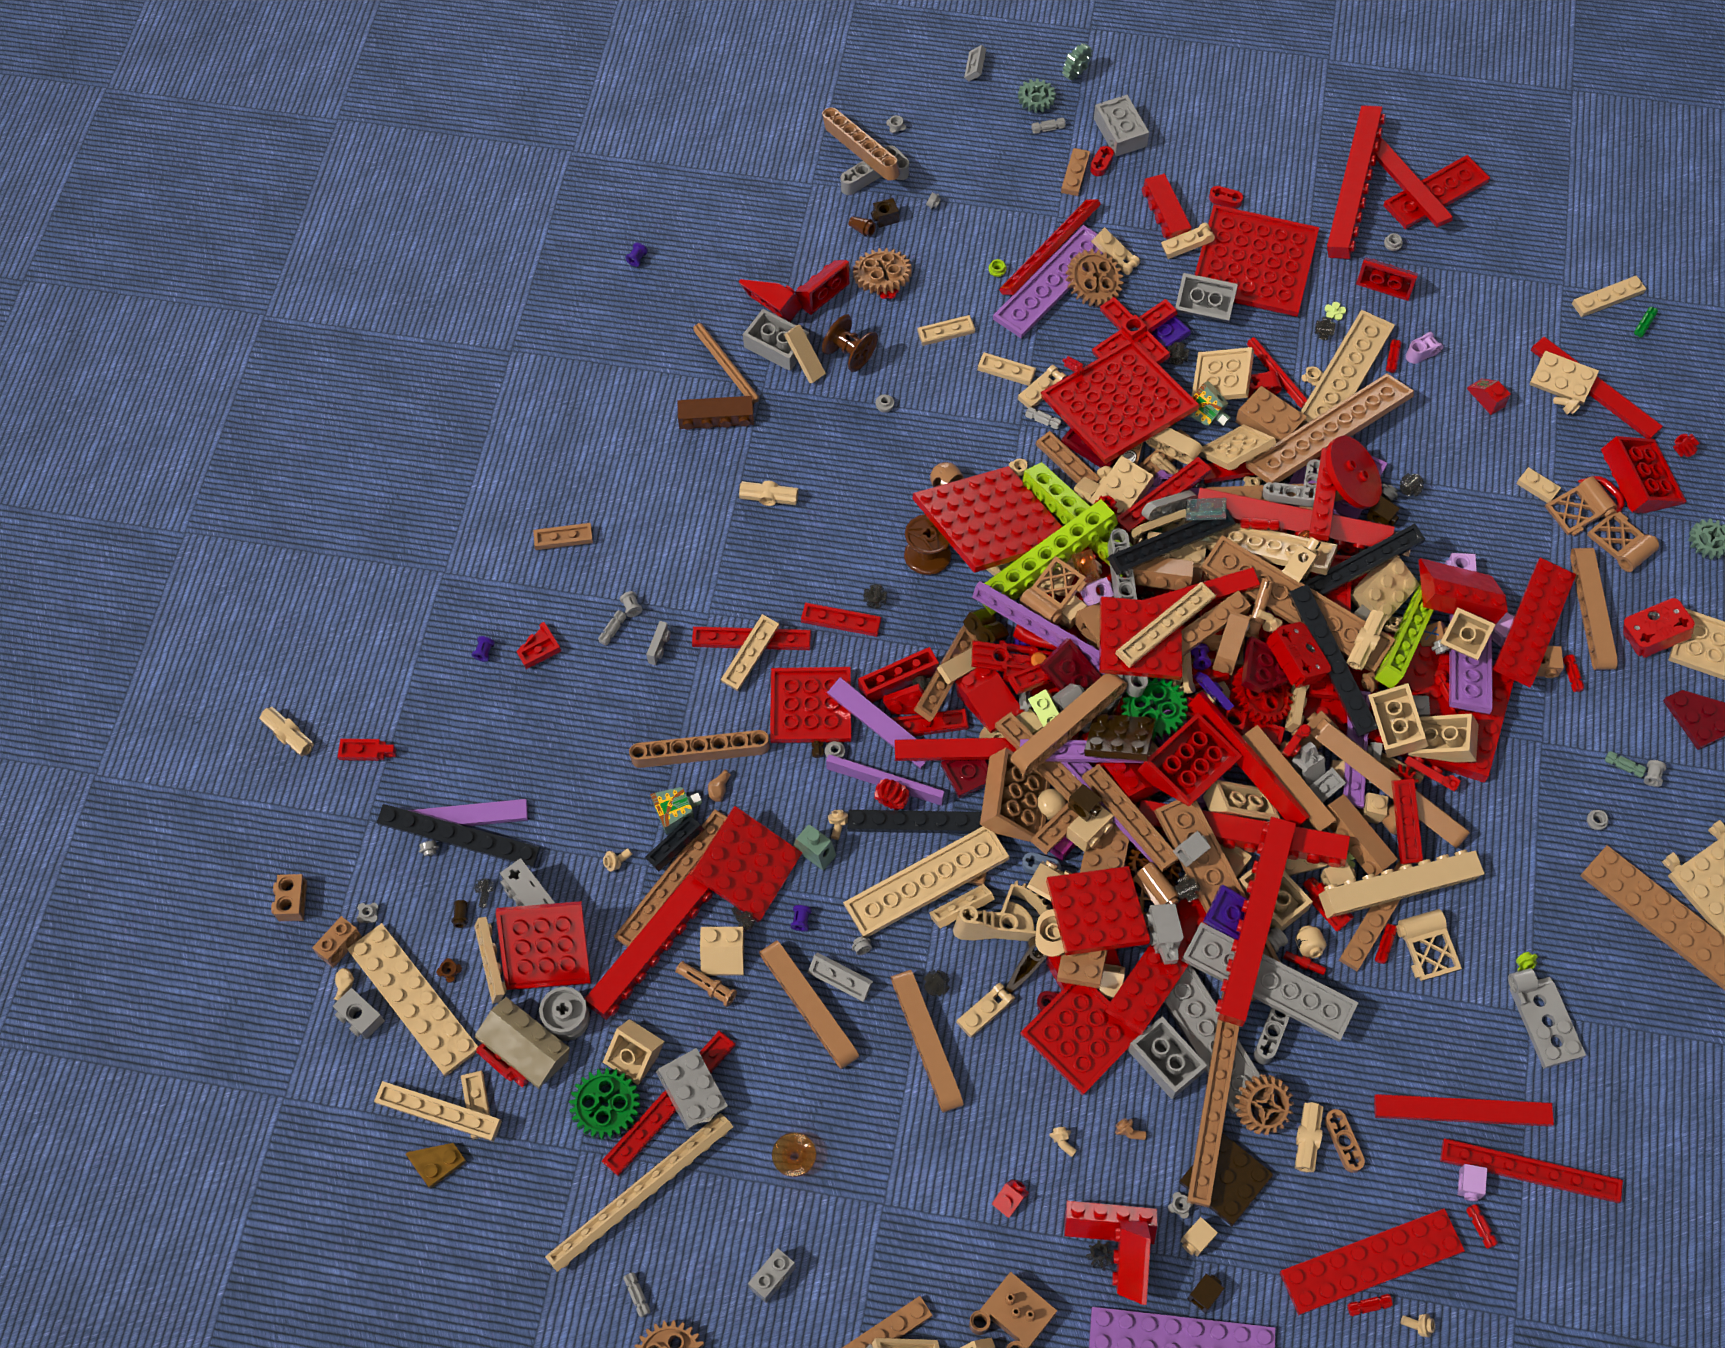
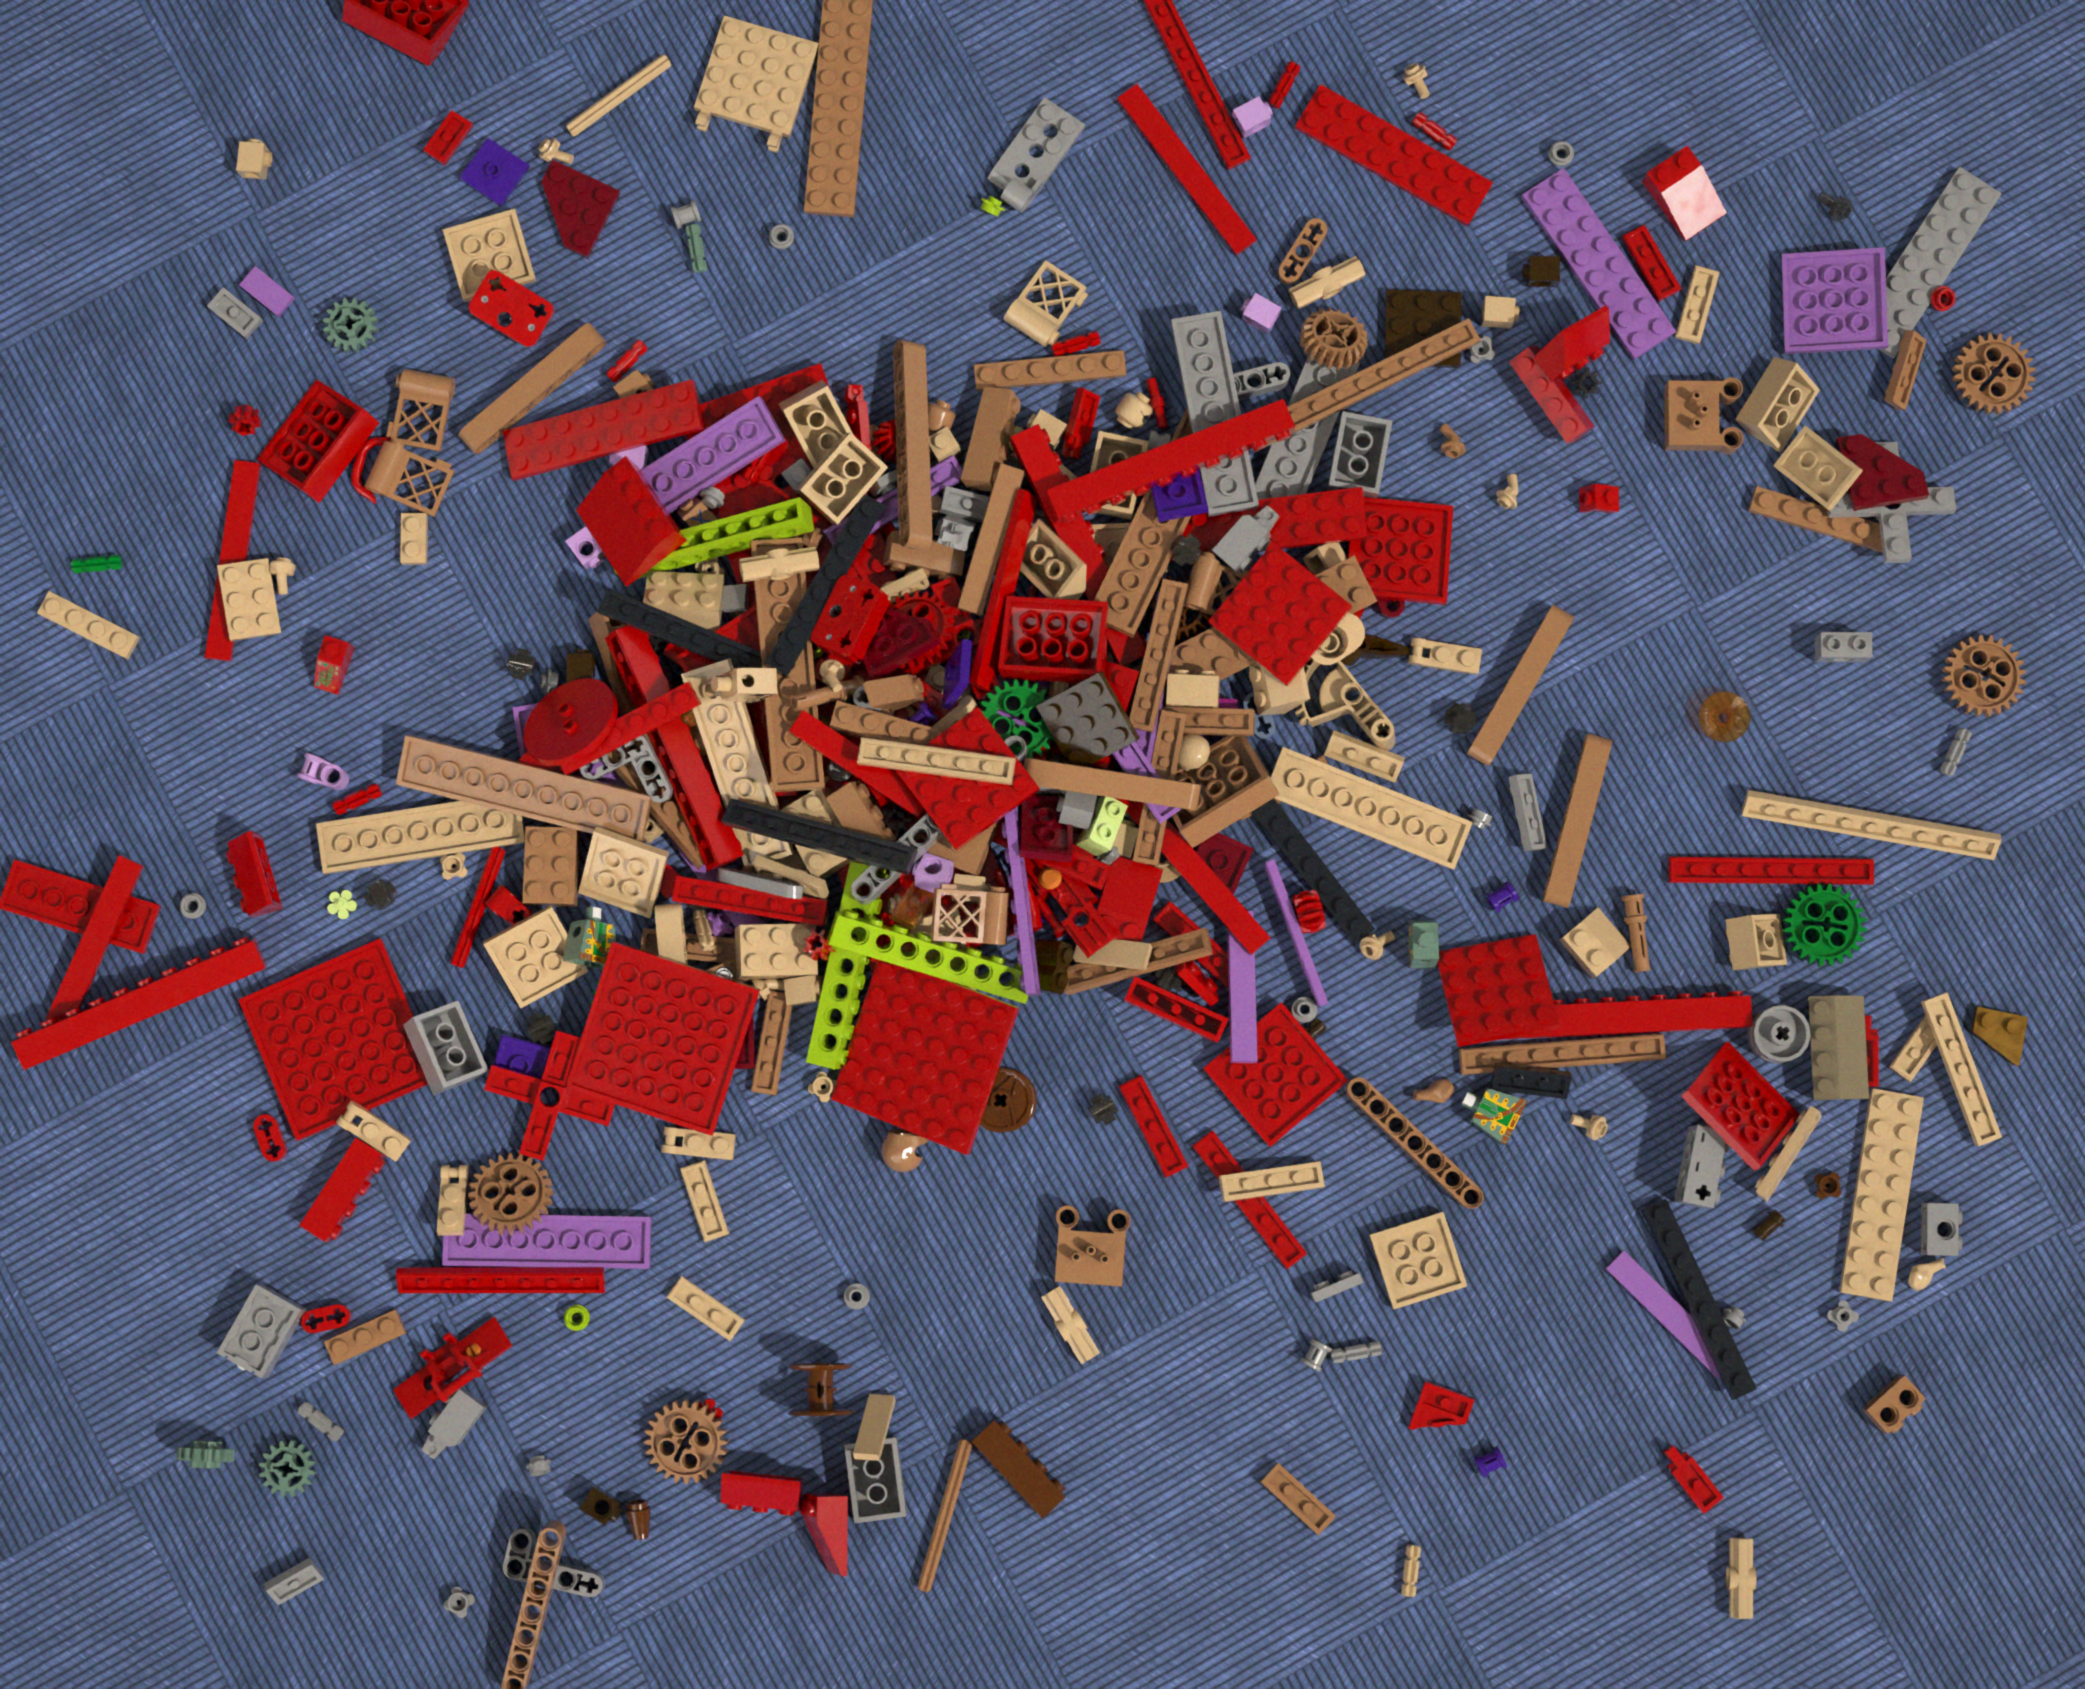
camera: 130 degrees left, 20 degrees up
(335, 941) = (1896, 1315): medium nougat brick -> none
(468, 564) = (1410, 1571): none -> tan axle
(484, 886) = (1723, 1226): clear smoke plate -> none
(630, 699) = (1418, 1260): none -> tan plate
(691, 1089) = (1749, 854): light grey piece -> none
(745, 920) = (1548, 946): clear smoke plate -> none
(798, 529) = (1090, 1255): none -> medium nougat piece
(993, 179) = (453, 1422): none -> light grey hinge
(1027, 198) = (448, 1361): none -> red piece
(1043, 418) = (738, 1111): light grey axle -> none
(1073, 364) = (648, 1127): red axle -> none
(1085, 803) = (1182, 705): dark brown brick -> none
(1192, 849) = (1148, 569): light grey brick -> none
(1206, 509) = (745, 834): clear light blue tile -> none
(1262, 524) = (712, 773): red axle -> none
(1293, 746) = (951, 559): red plate -> none
(1319, 1075) = (1260, 313): none -> lavender brick
(1400, 884) = (1010, 364): tan brick -> none
(1407, 821) = (942, 400): red plate -> none
(1467, 634) = (688, 475): tan slope -> none

